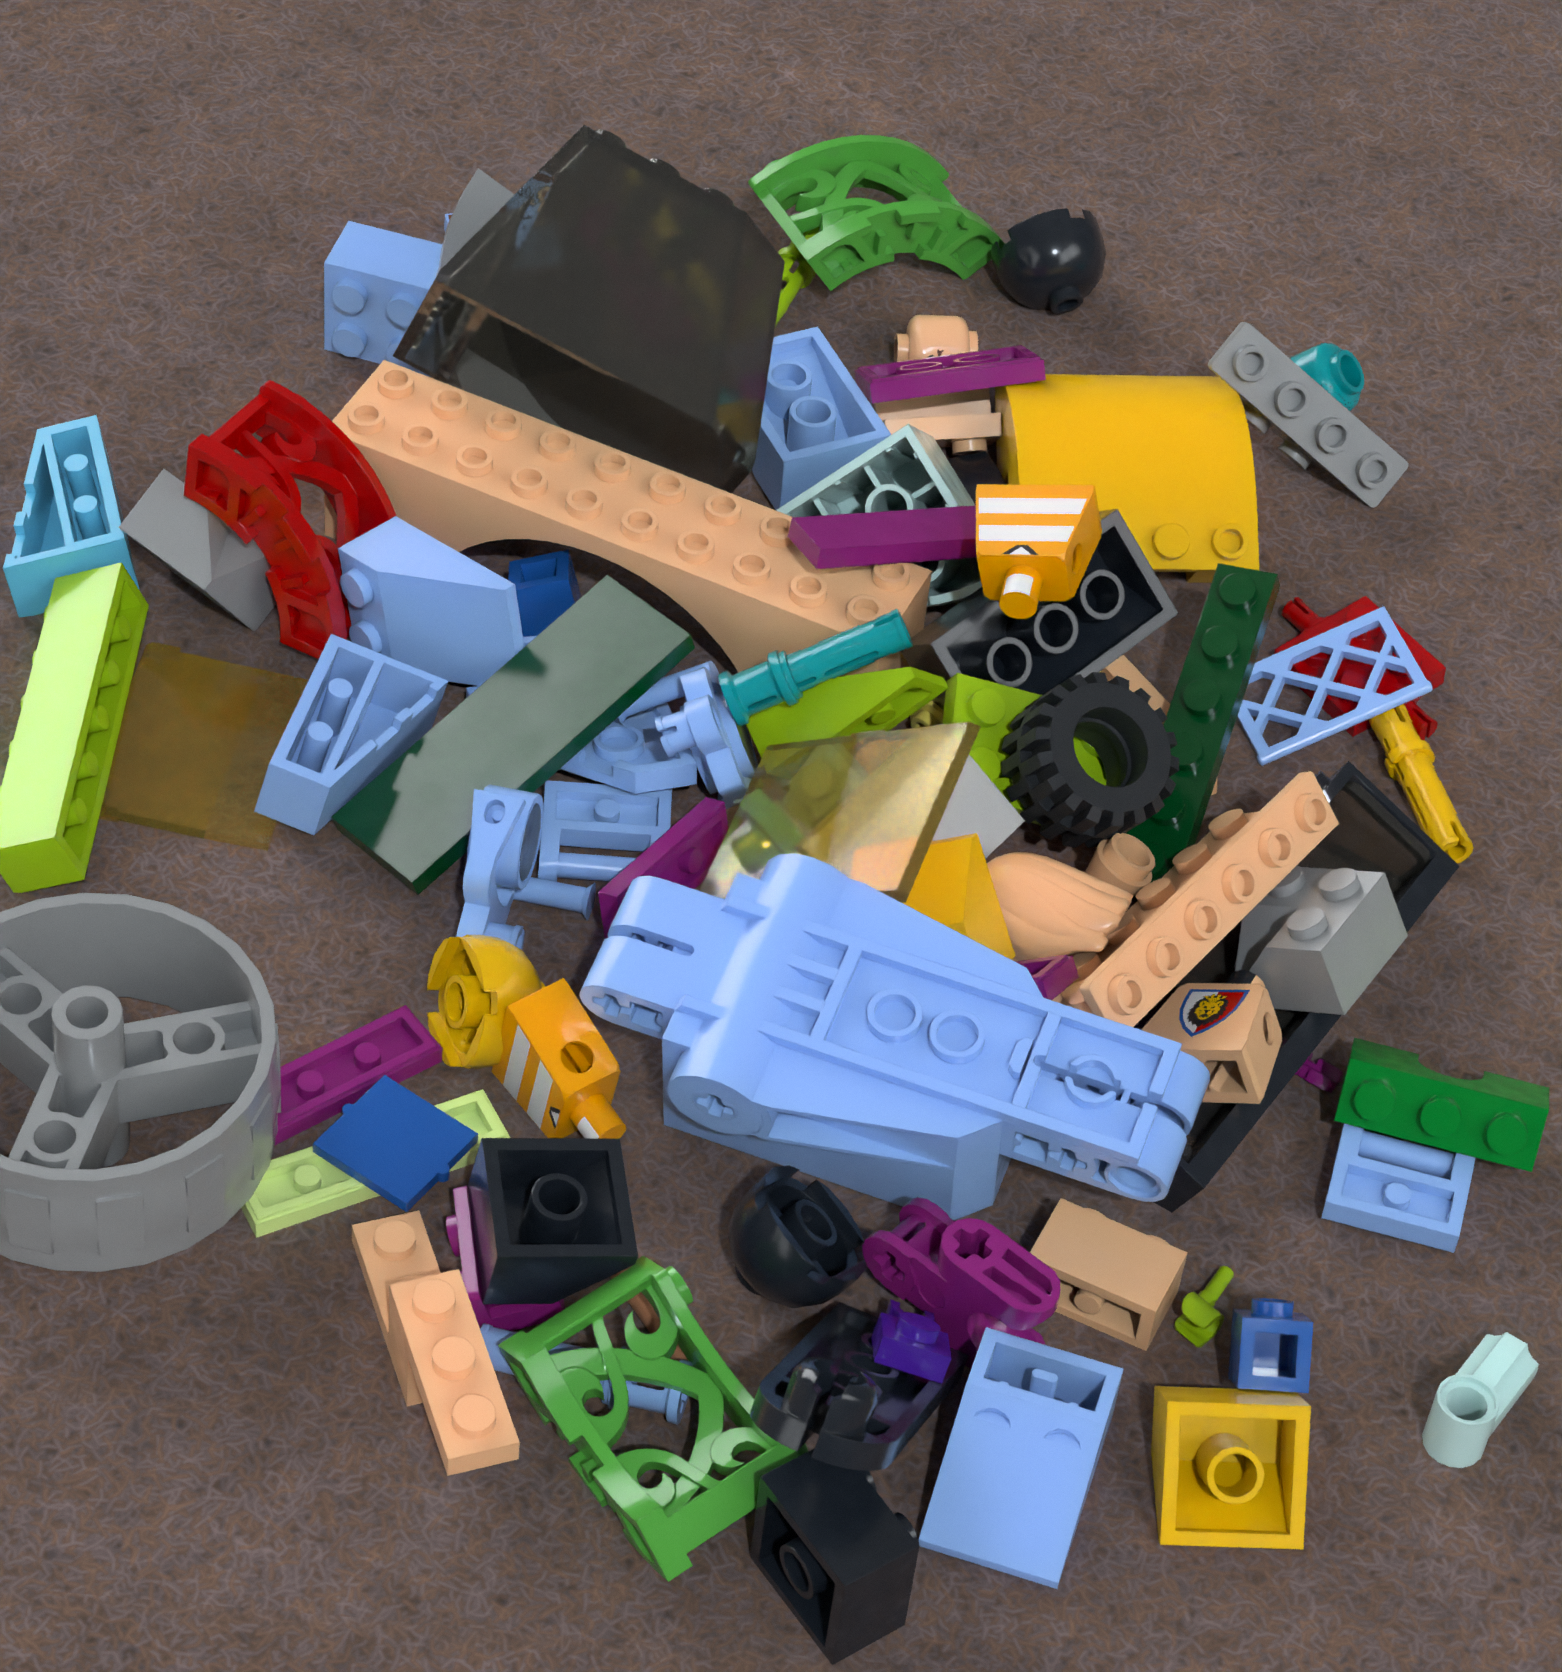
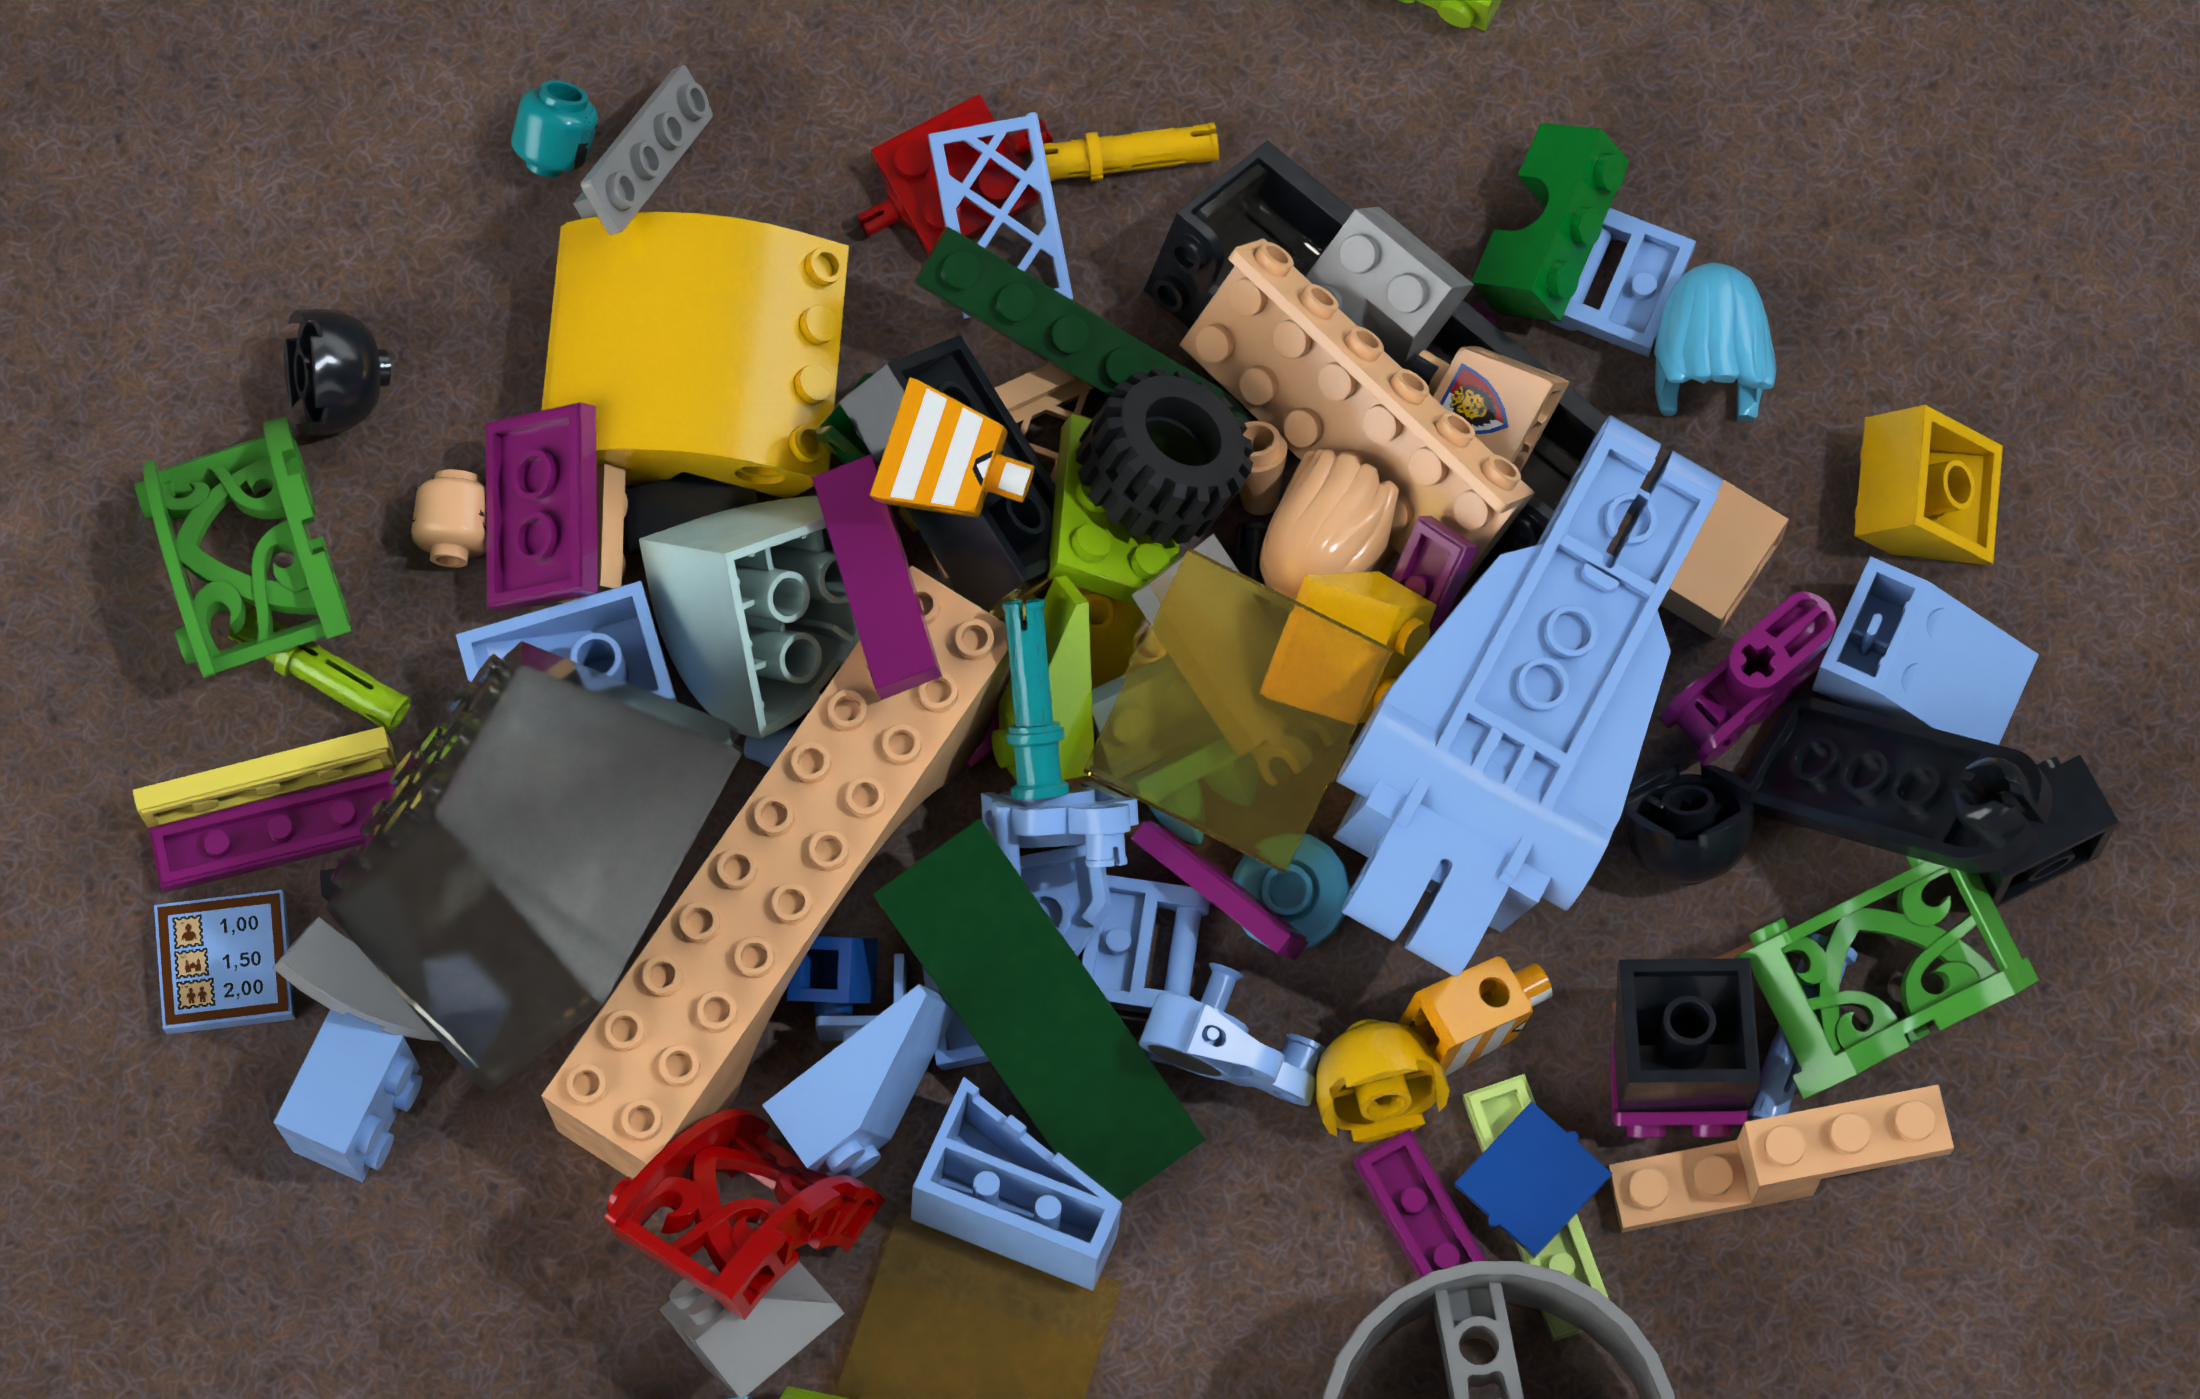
camera: 75 degrees left, 25 degrees up
(911, 1343) = (1824, 739): dark purple plate -> none
(1199, 1317) = (1762, 484): lime hand -> none
(1270, 1347) = (1824, 429): blue brick -> none
(1350, 1244) = (1714, 332): none -> medium azure hair
(1477, 1400) = (1865, 260): light aqua piece -> none

